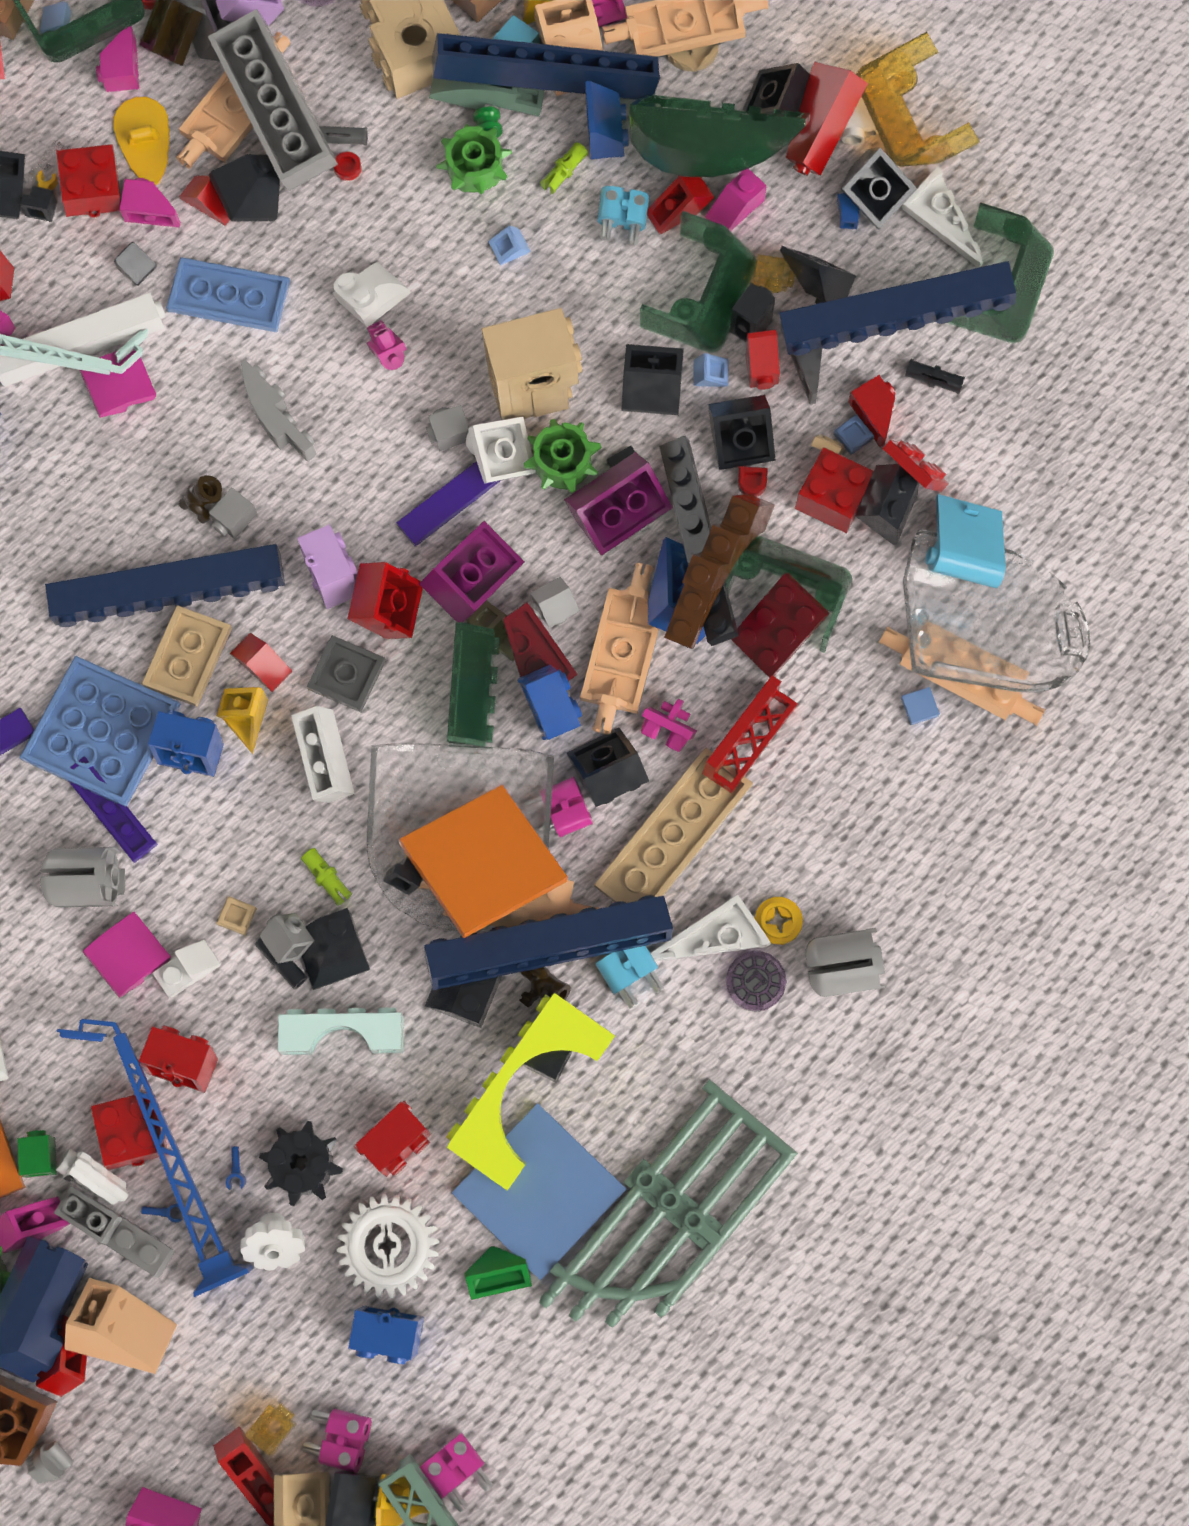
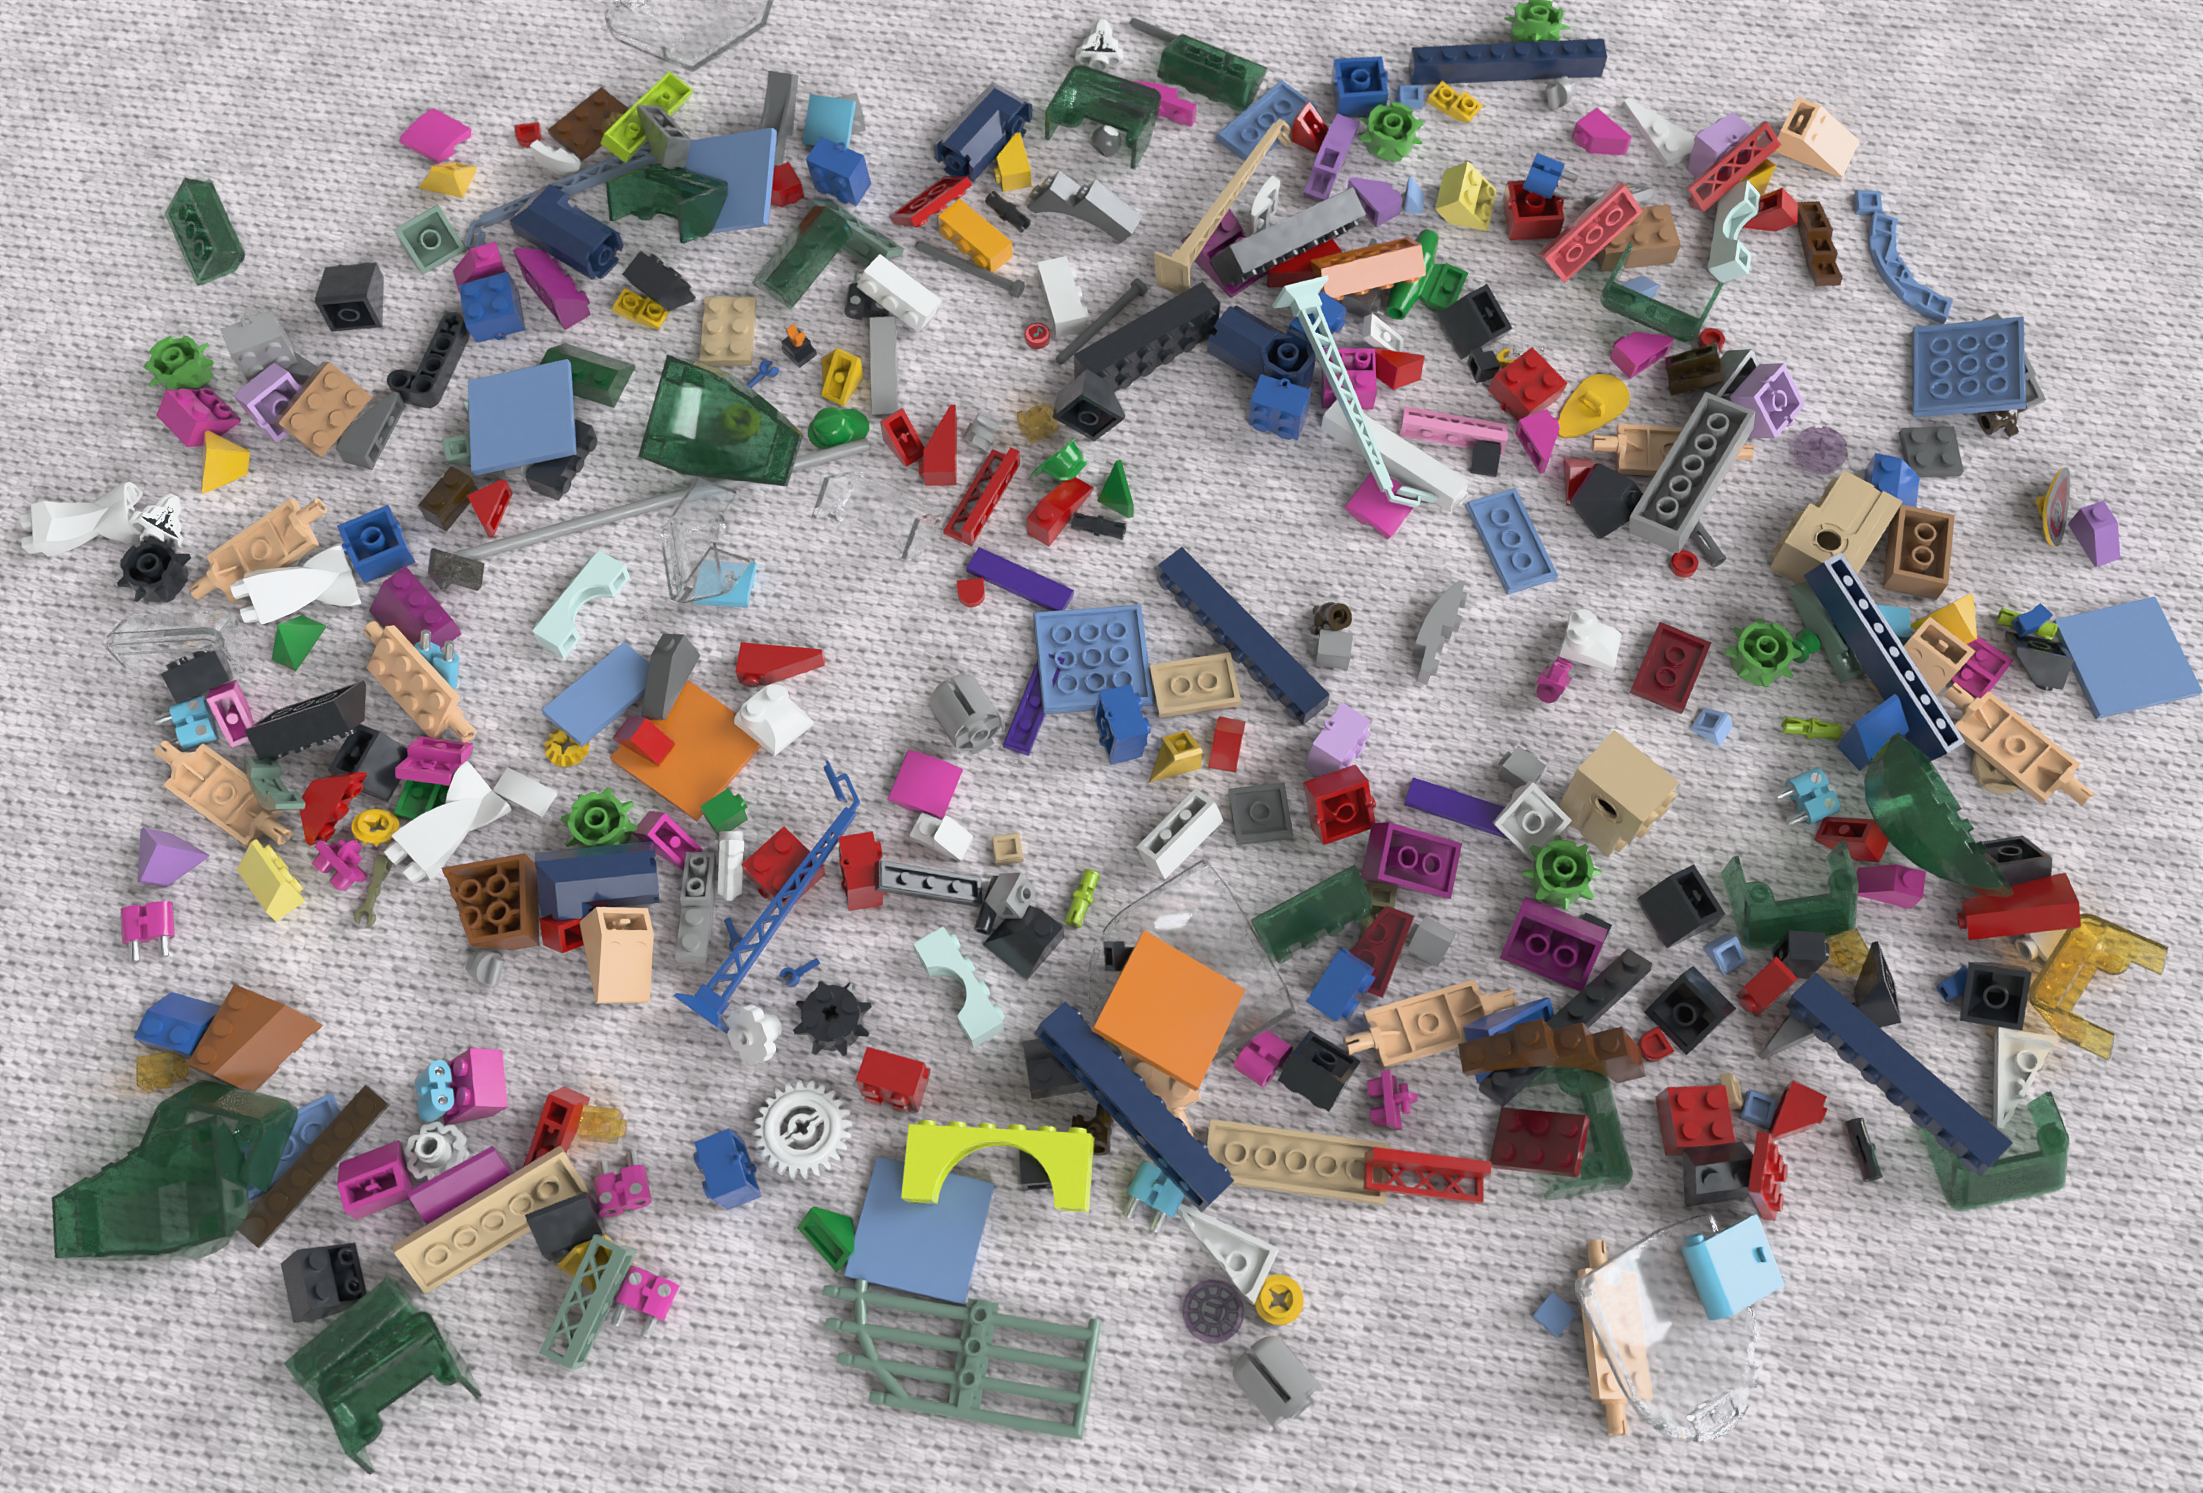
camera: 55 degrees right, 10 degrees down
(88, 276) = (1451, 429): none -> bright pink fence
(230, 1005) = (928, 883): none -> tile
(436, 243) = (1670, 668): none -> dark red plate

